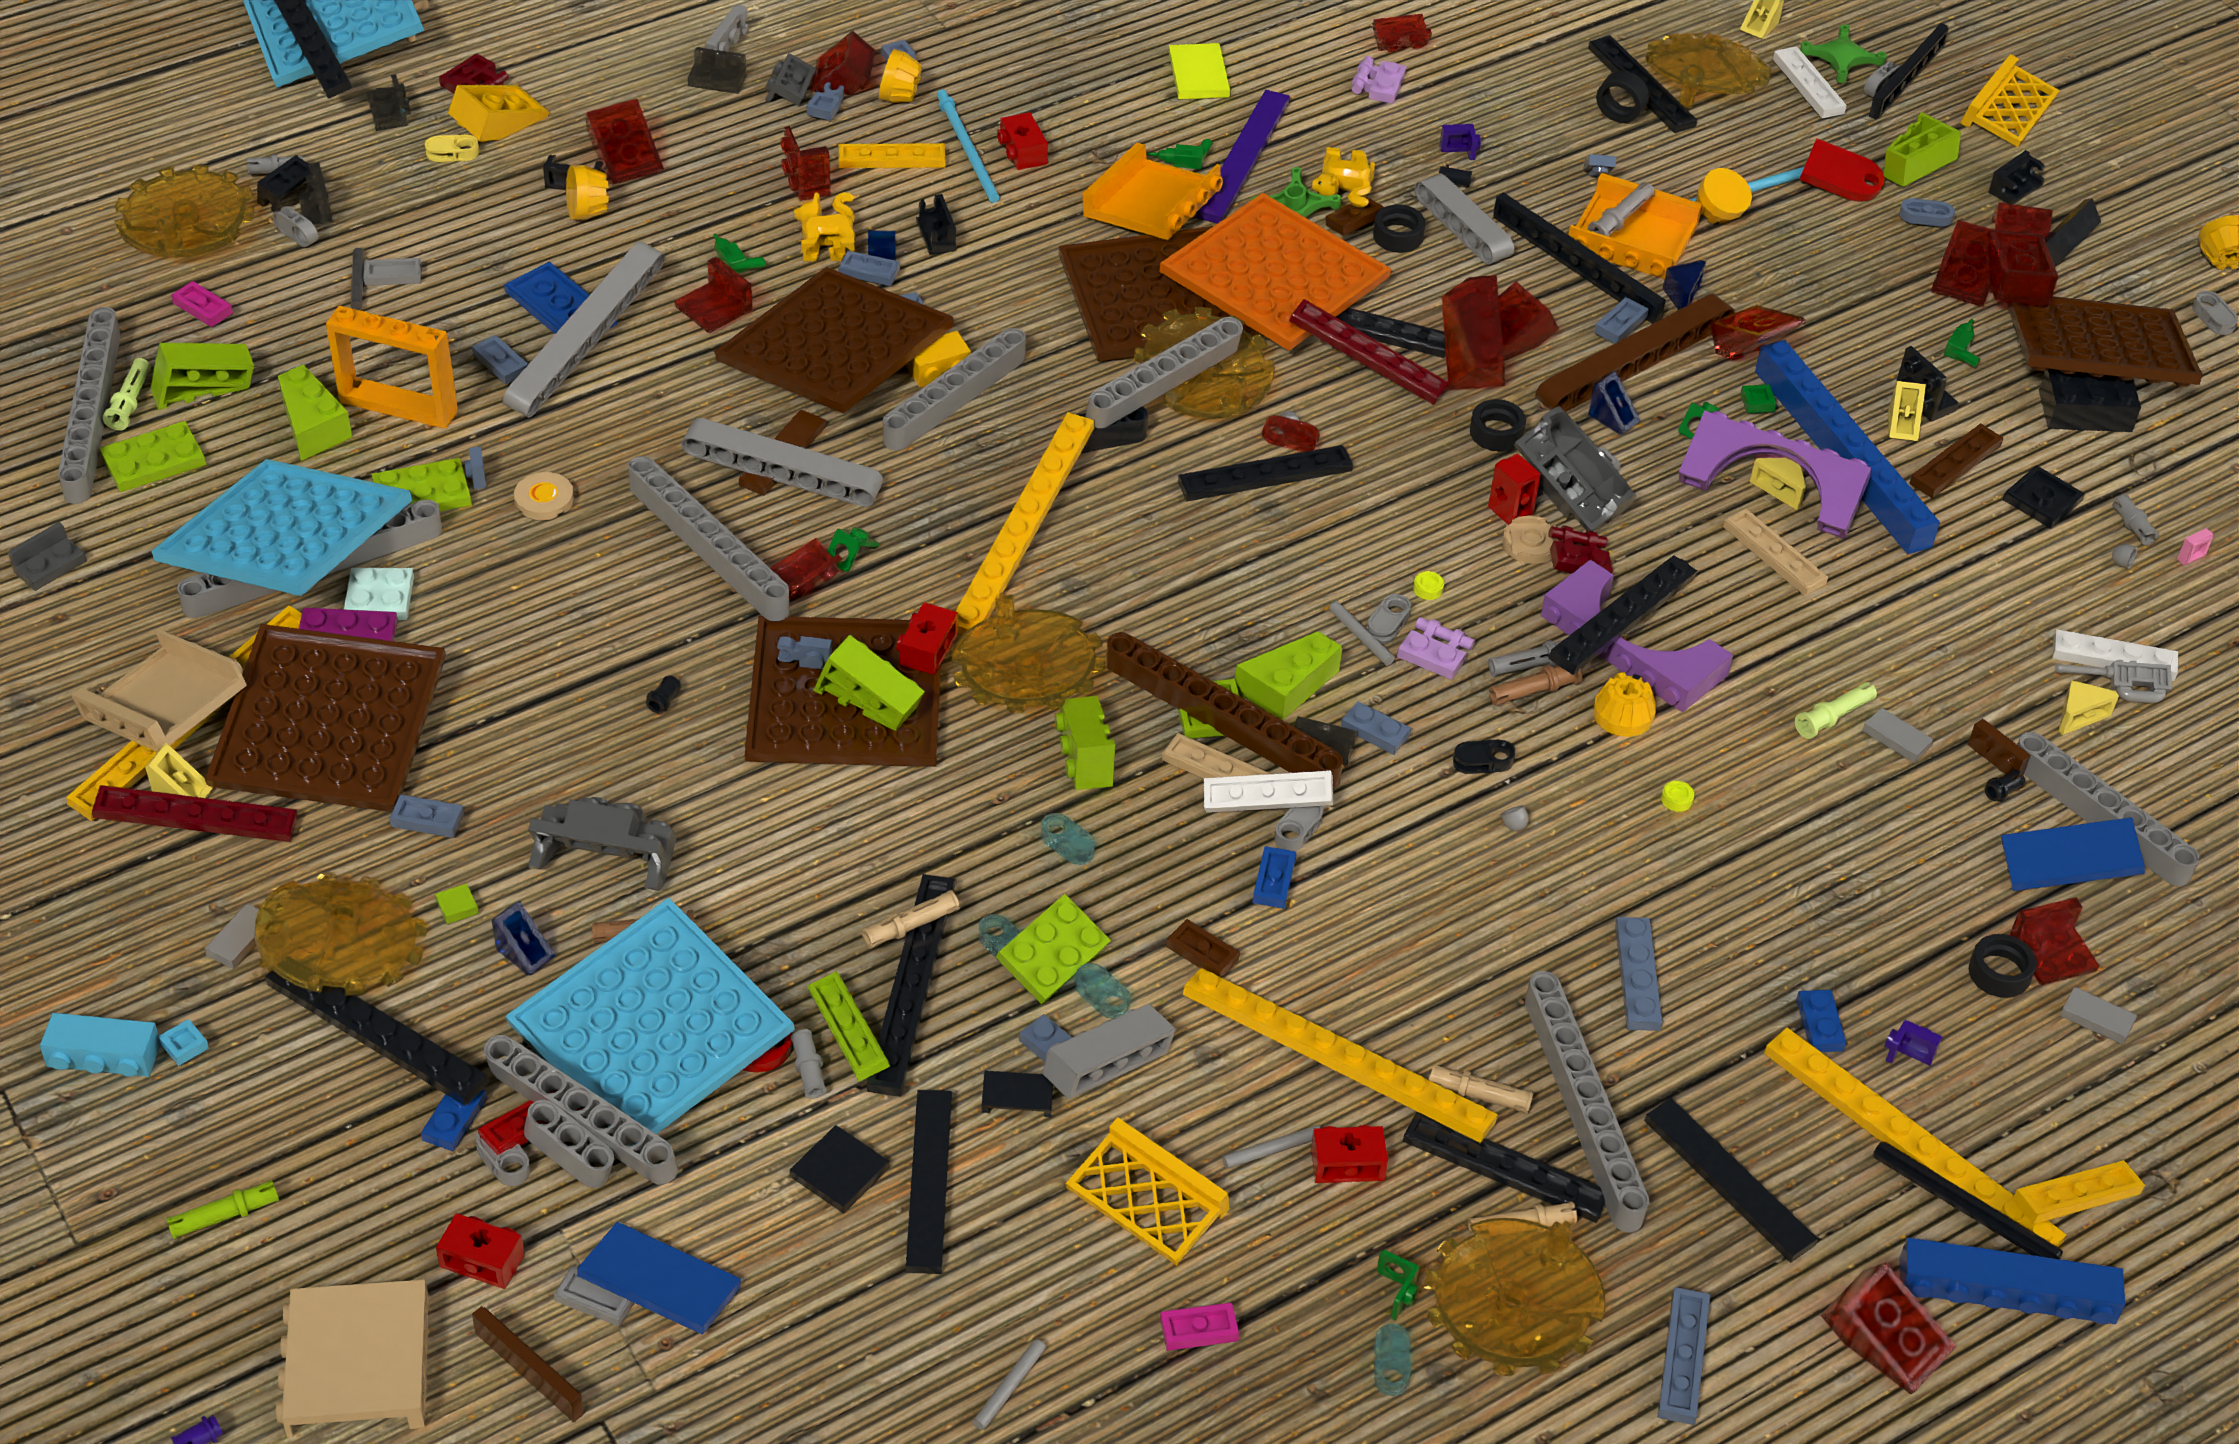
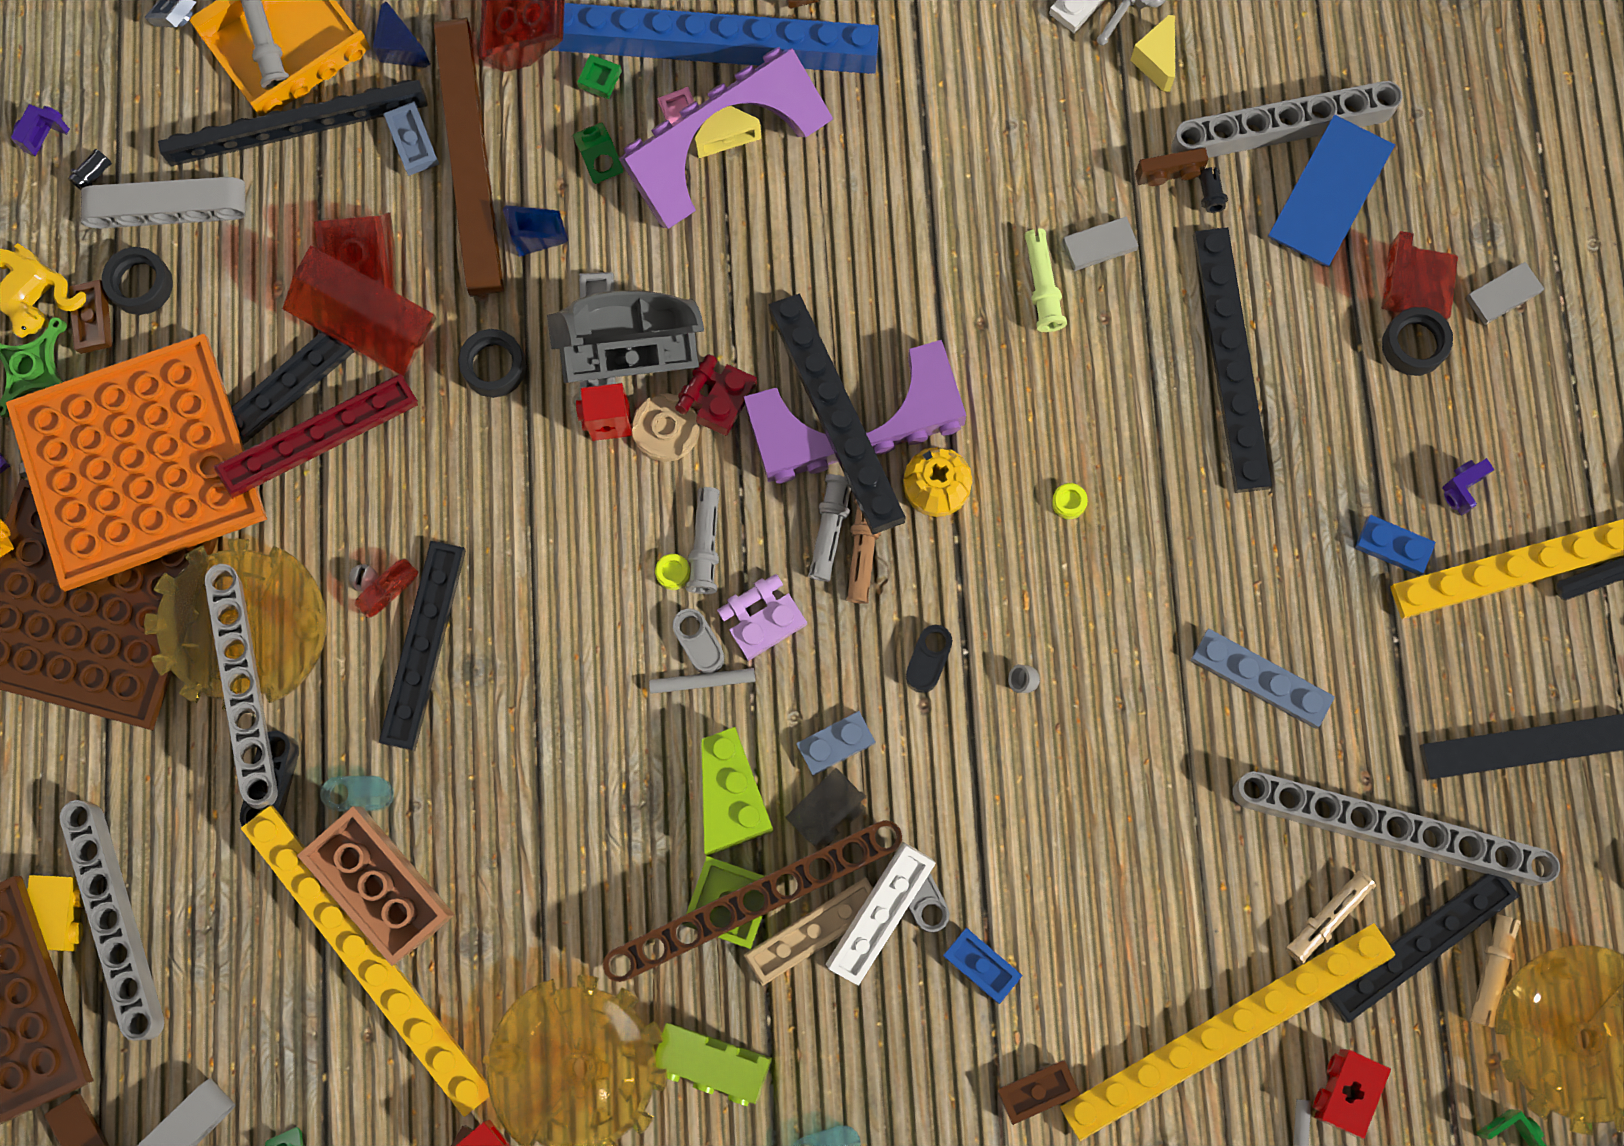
camera: 55 degrees left, 30 degrees up
(1080, 502) = (375, 884): none -> nougat slope
(1137, 485) = (364, 791): none -> clear light blue piece
(1454, 593) = (703, 556): none -> light grey pin
(1775, 552) = (809, 198): tan tile -> none
(1878, 854) = (1232, 361): none -> black plate

